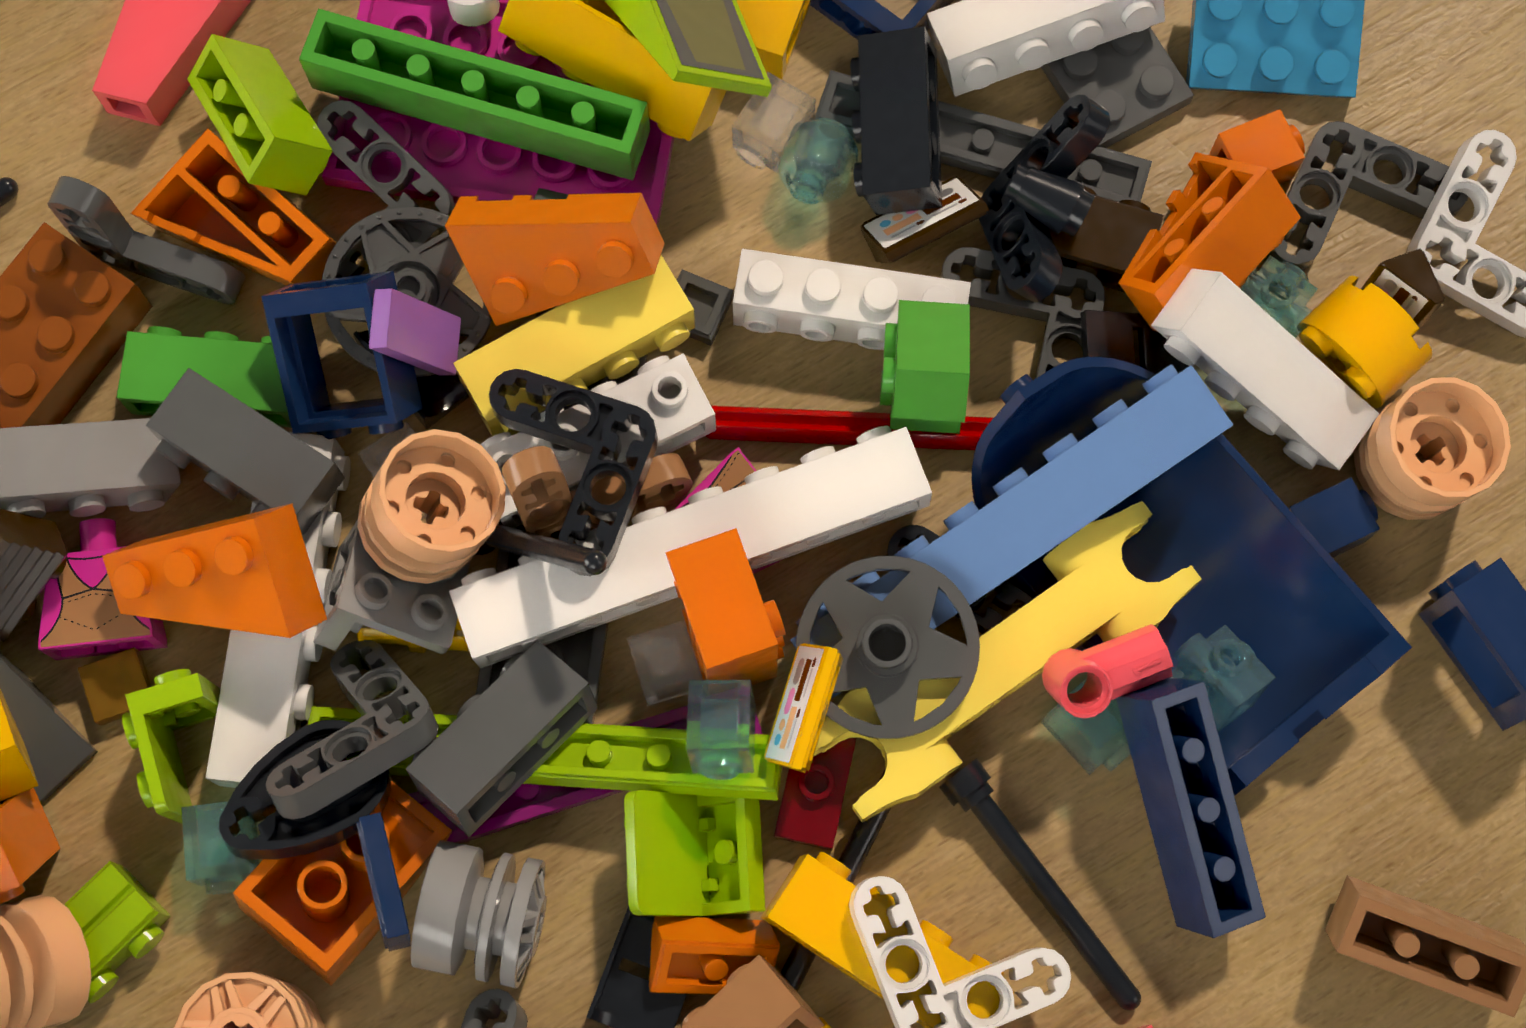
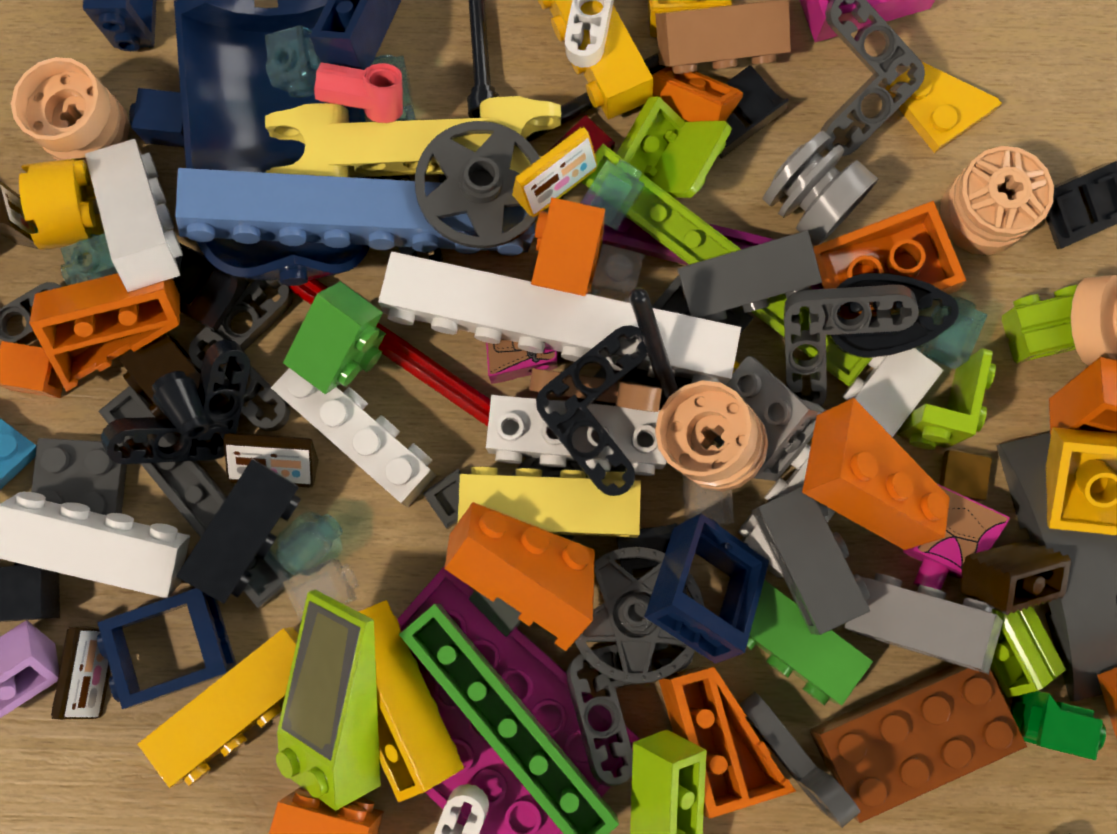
camera: 145 degrees left, 5 degrees up
(383, 882) = (872, 226): dark blue tile -> none
(414, 332) = (655, 565): medium lavender tile -> none

